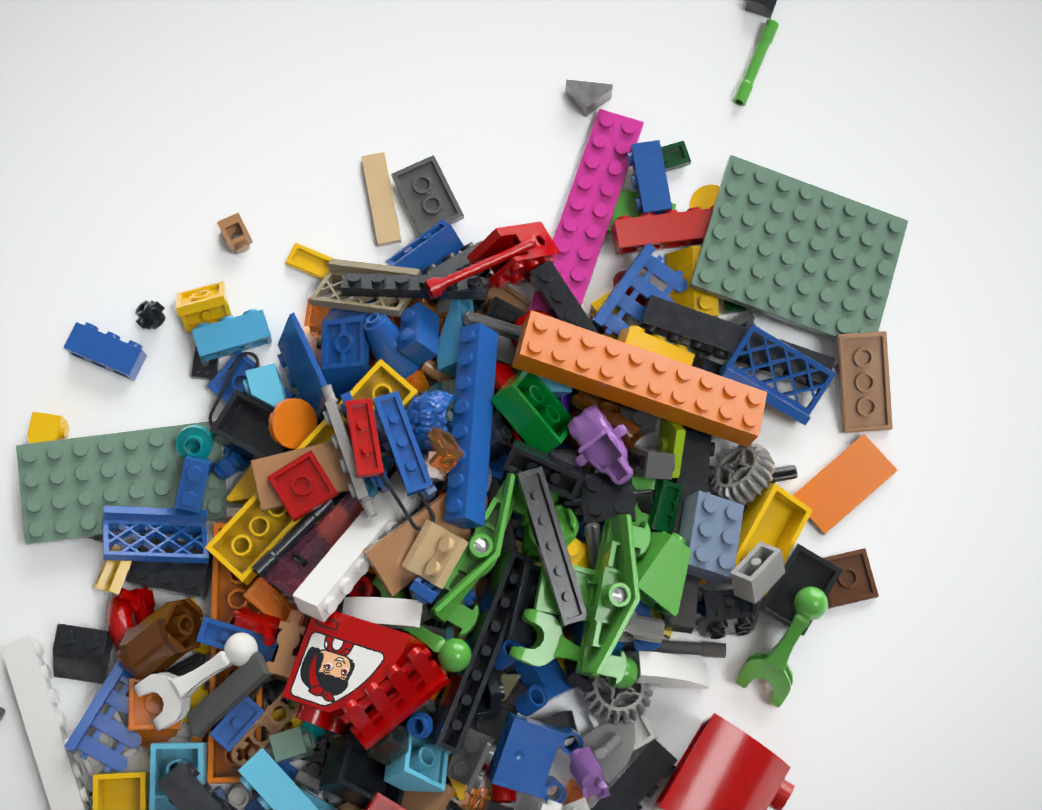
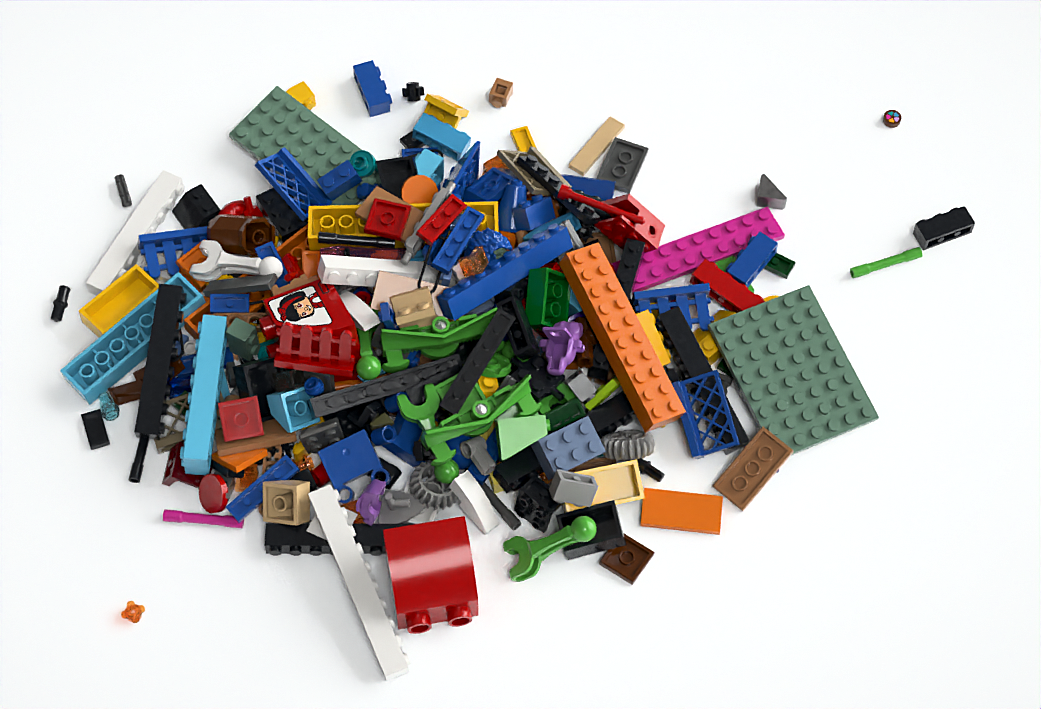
camera: 45 degrees right, 15 degrees down
(112, 574) = (254, 187): yellow slope -> none

